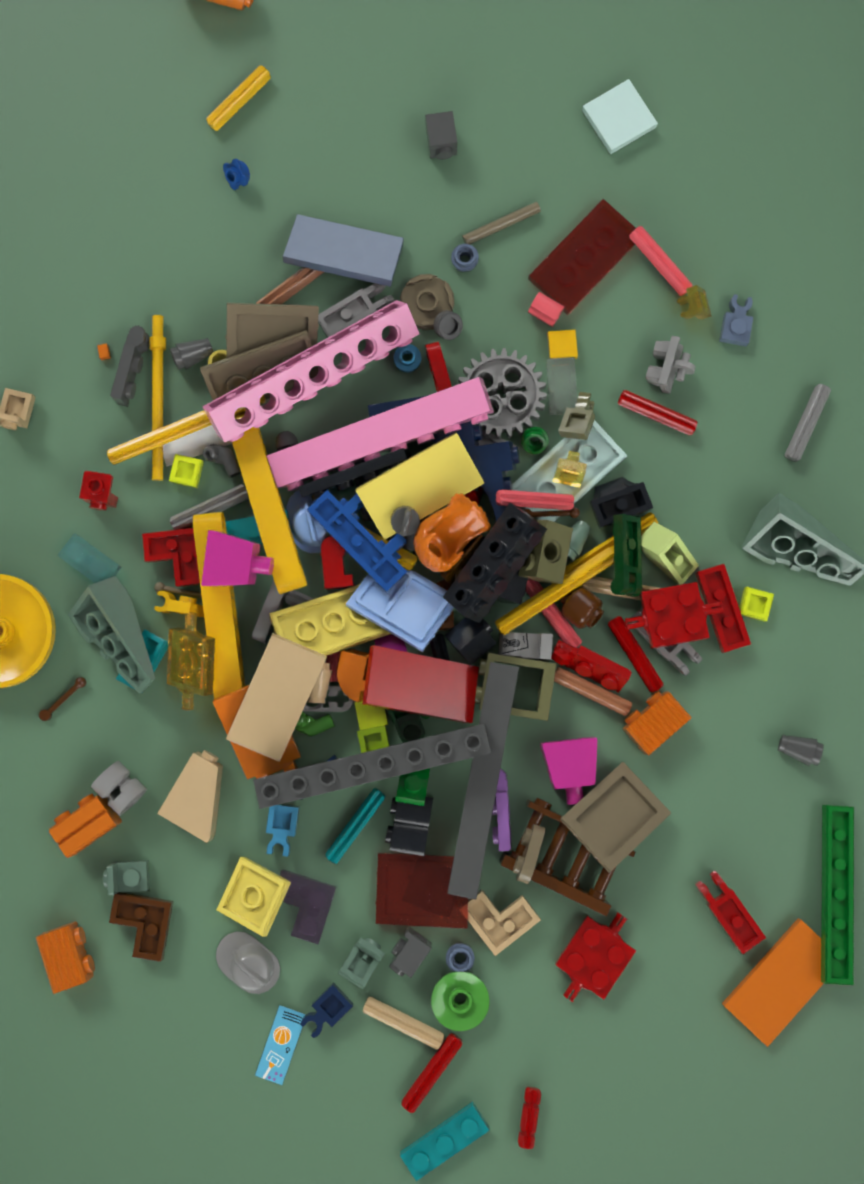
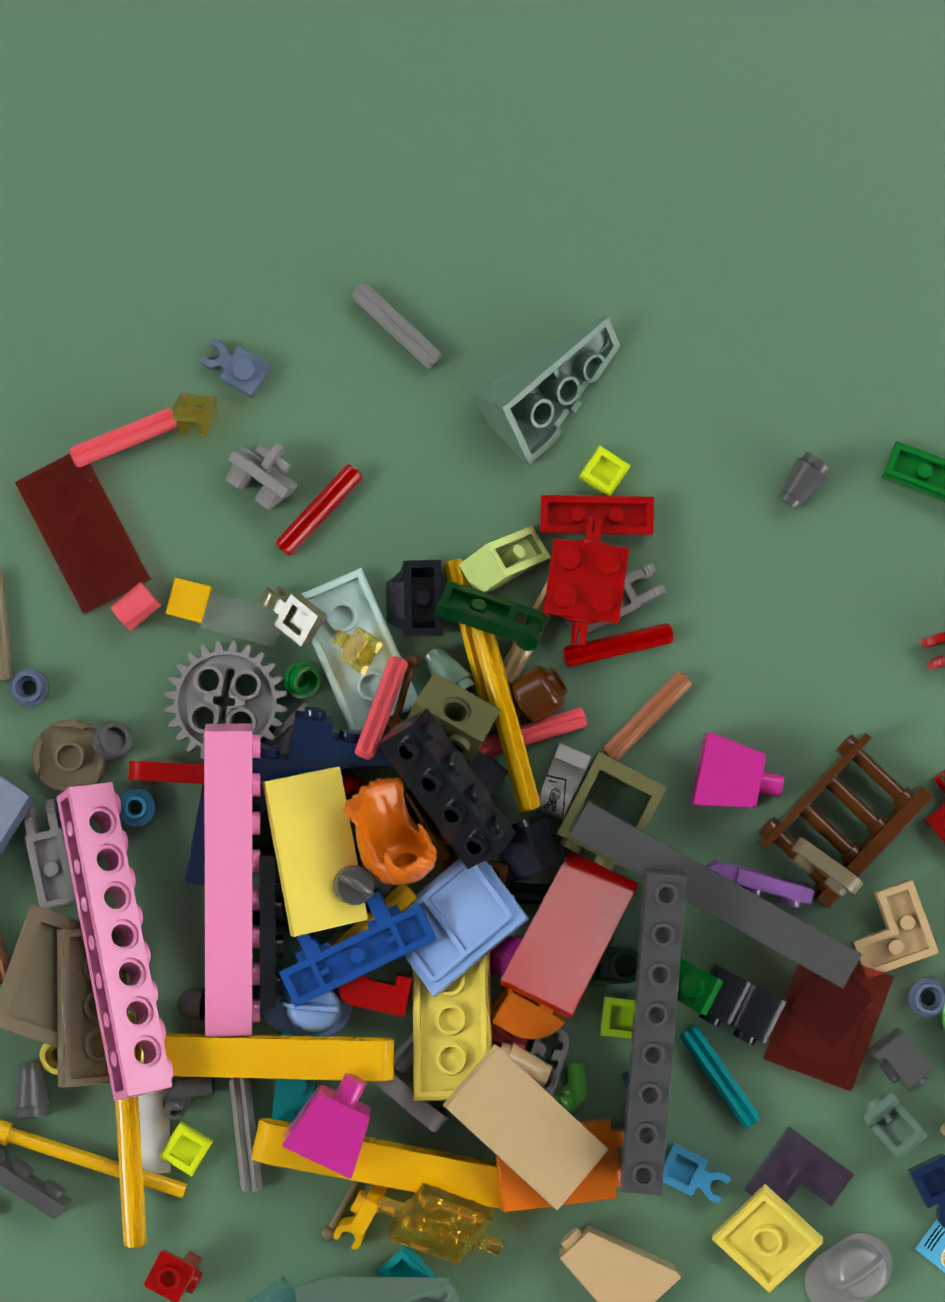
camera: 65 degrees left, 0 degrees up
(175, 546) = (282, 1192): red plate -> none
(370, 716) = (589, 1011): neon yellow tile -> none
(591, 665) = (614, 707): red hinge -> none
(615, 817) = (814, 742): dark tan piece -> none
(656, 722) = (712, 649): orange brick -> none

